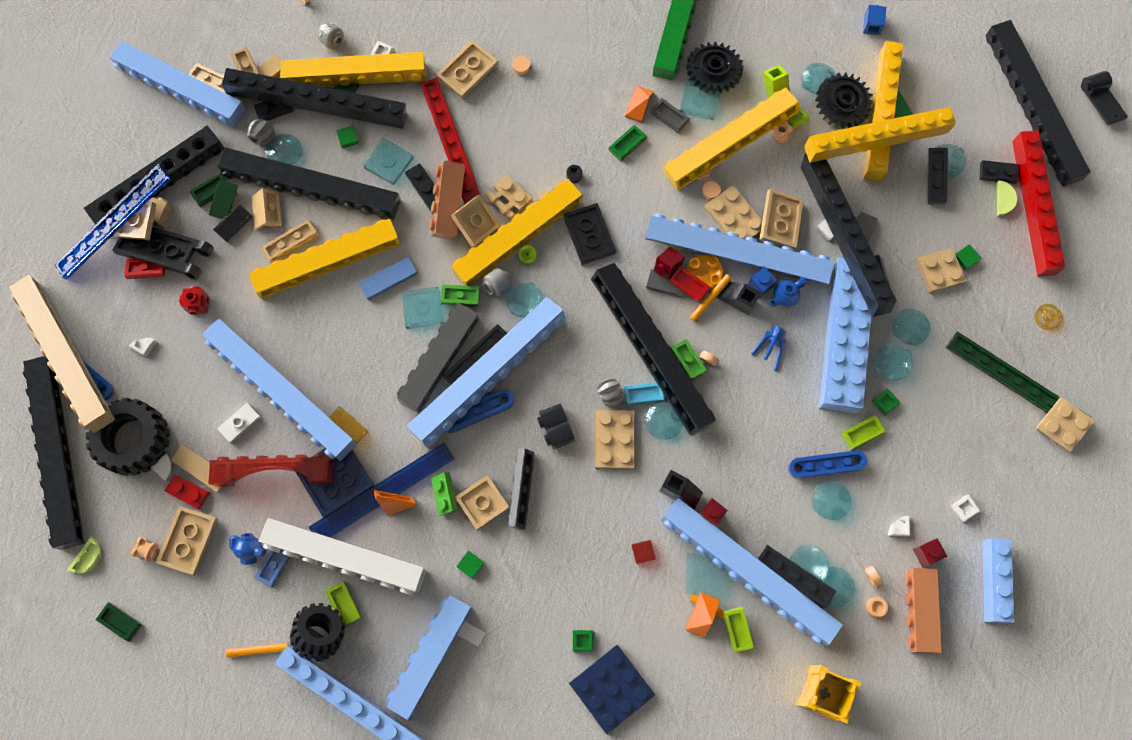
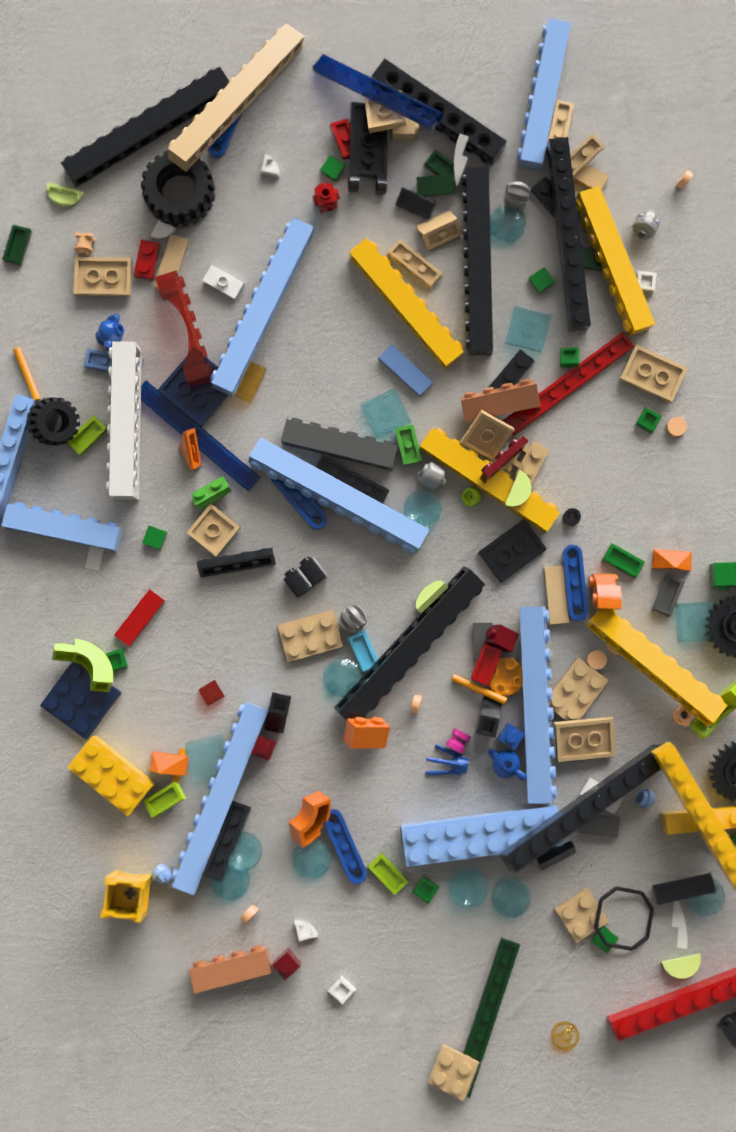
camera: 75 degrees right, 10 degrees up
(168, 288) = (332, 168): none -> green tile
(208, 171) = (459, 160): none -> white sticker
(427, 133) = (569, 357): none -> green tile
(502, 211) = (502, 459): none -> dark red plate
(507, 86) = (648, 420): none -> green tile
(536, 205) = (520, 490): none -> yellowish green tile
(546, 603) = (139, 617): none -> red tile
(575, 663) = (89, 657): none -> arch
(608, 315) = (429, 595): none -> yellowish green tile
(635, 187) = (575, 582): none -> blue plate
(640, 206) = (556, 595): none -> tan tile
(652, 161) = (605, 592): none -> orange brick
(689, 359) = (409, 684): bright green plate -> none
(700, 677) = (111, 775): none -> yellow brick
(725, 409) = (366, 733): none -> orange brick
(756, 334) = (455, 744): none -> dark pink wheel
(794, 488) = (310, 819): none -> orange brick
(813, 654) = (161, 874): none -> light blue plate
(848, 185) = (645, 798): none -> light blue plate
(877, 607) = (222, 925): light nougat tile -> none
(943, 252) = (599, 912): none -> black piece
(964, 191) = (679, 921): none -> white sticker
(998, 581) = (278, 1034): light blue brick -> none
(999, 171) = (711, 953): black plate -> none

